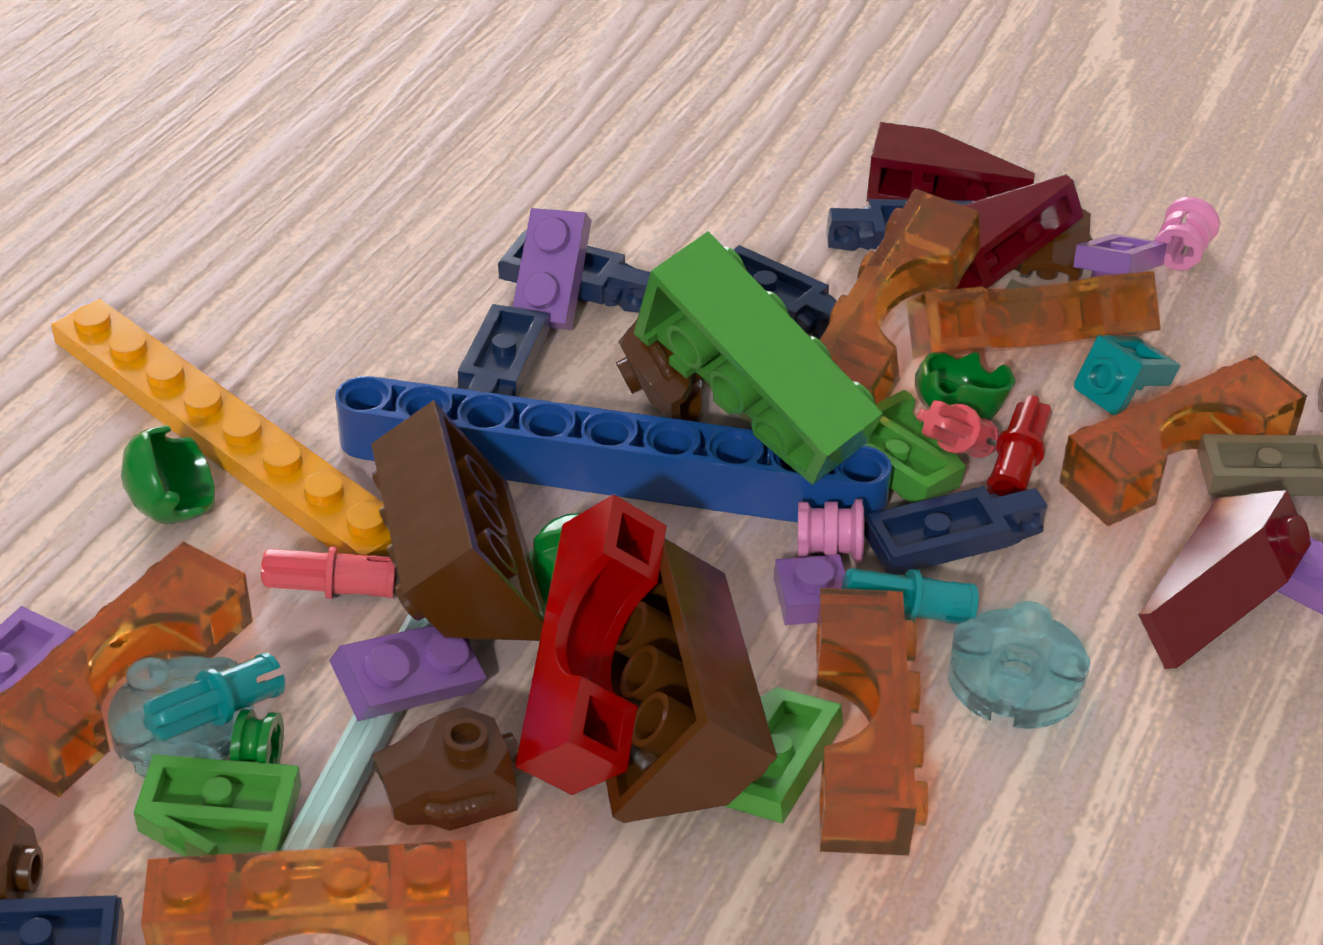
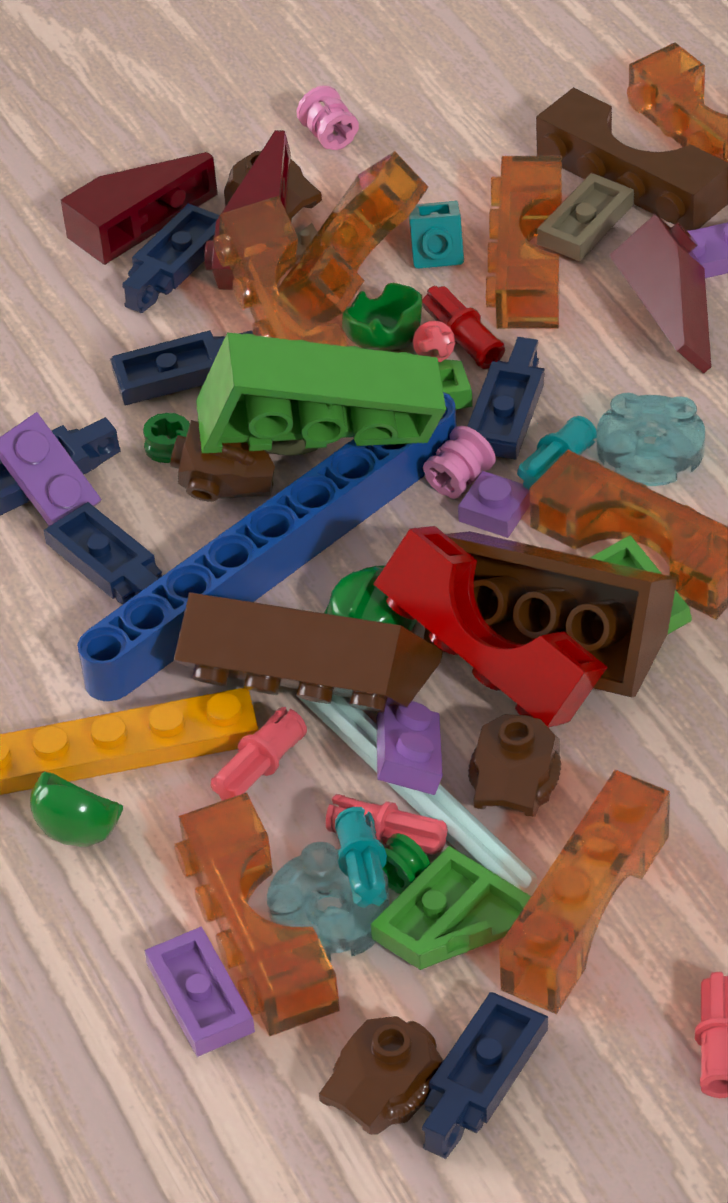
camera: 50 degrees left, 5 degrees up
(305, 709) = (388, 820): none -> coral axle
(1119, 255) = (329, 163): medium lavender plate -> none

